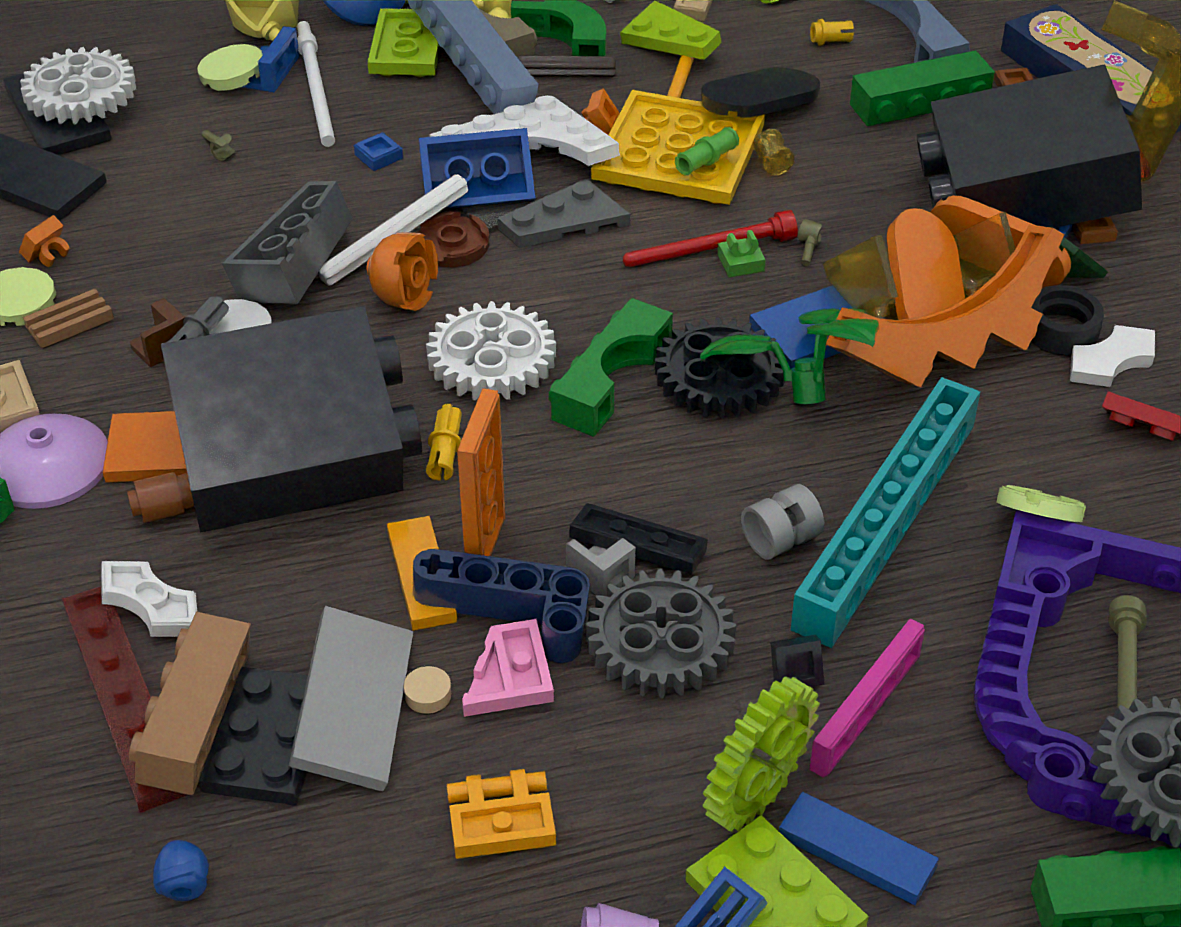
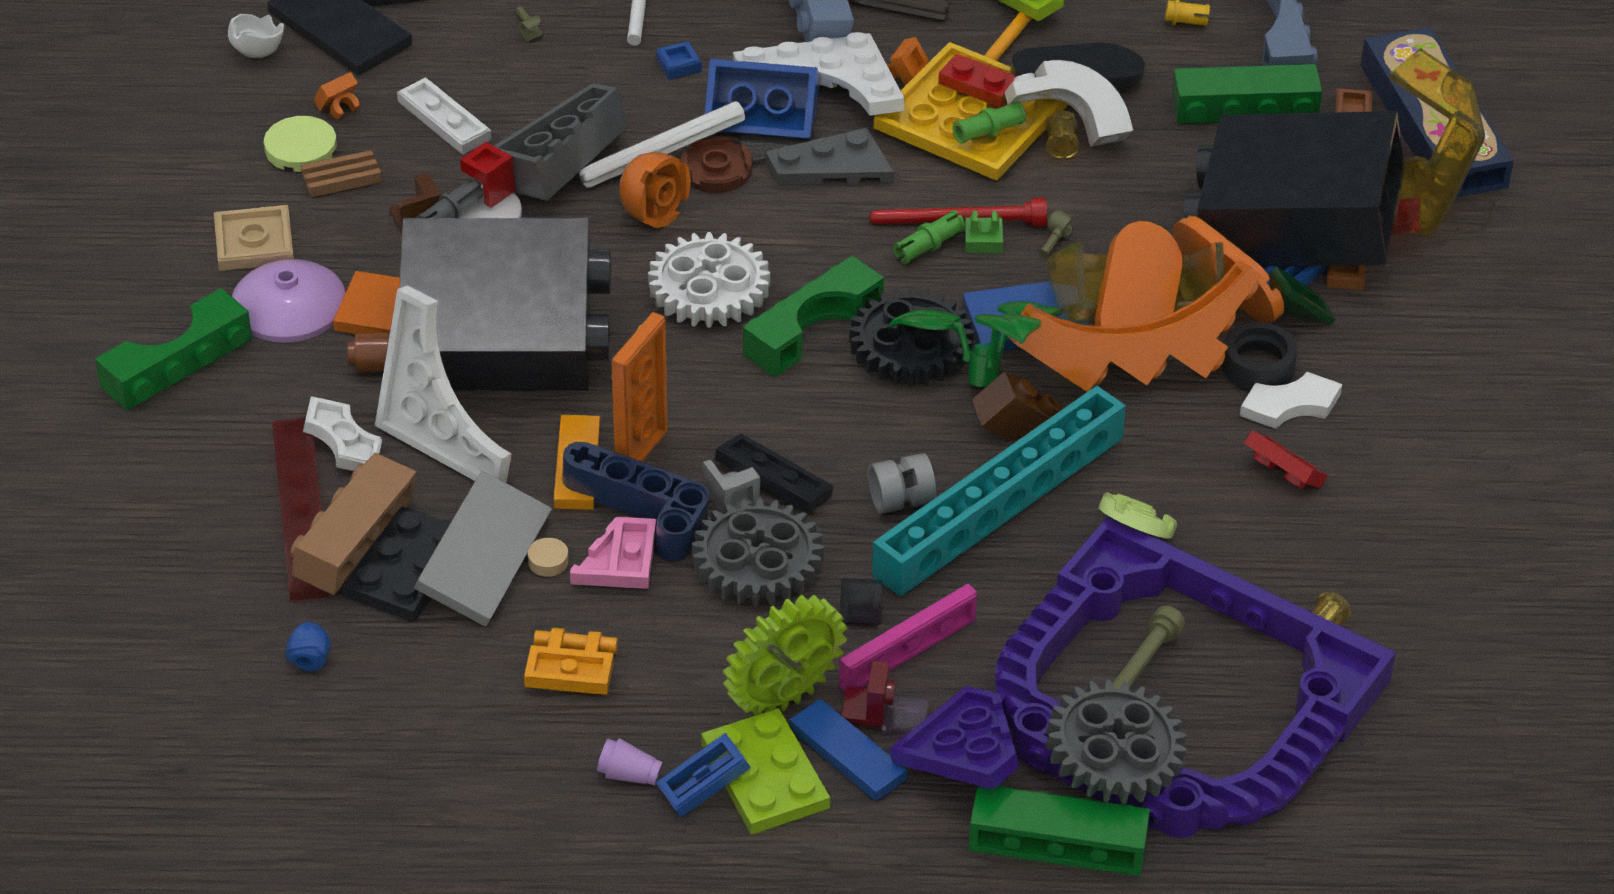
camera: 15 degrees right, 0 degrees up
(160, 243) = (444, 116): none -> white tile
(232, 280) = (493, 169): none -> red panel
(232, 543) = (419, 401): none -> white plate
(677, 116) = (976, 79): none -> red plate
(691, 268) = (929, 237): none -> bright green pin
(785, 106) = (1084, 90): none -> white arch
(861, 418) = (1013, 407): none -> reddish brown slope
(866, 782) = (868, 704): none -> dark red bracket
(903, 791) = (904, 716): none -> clear purple tile
(996, 810) = (962, 741): none -> dark purple plate

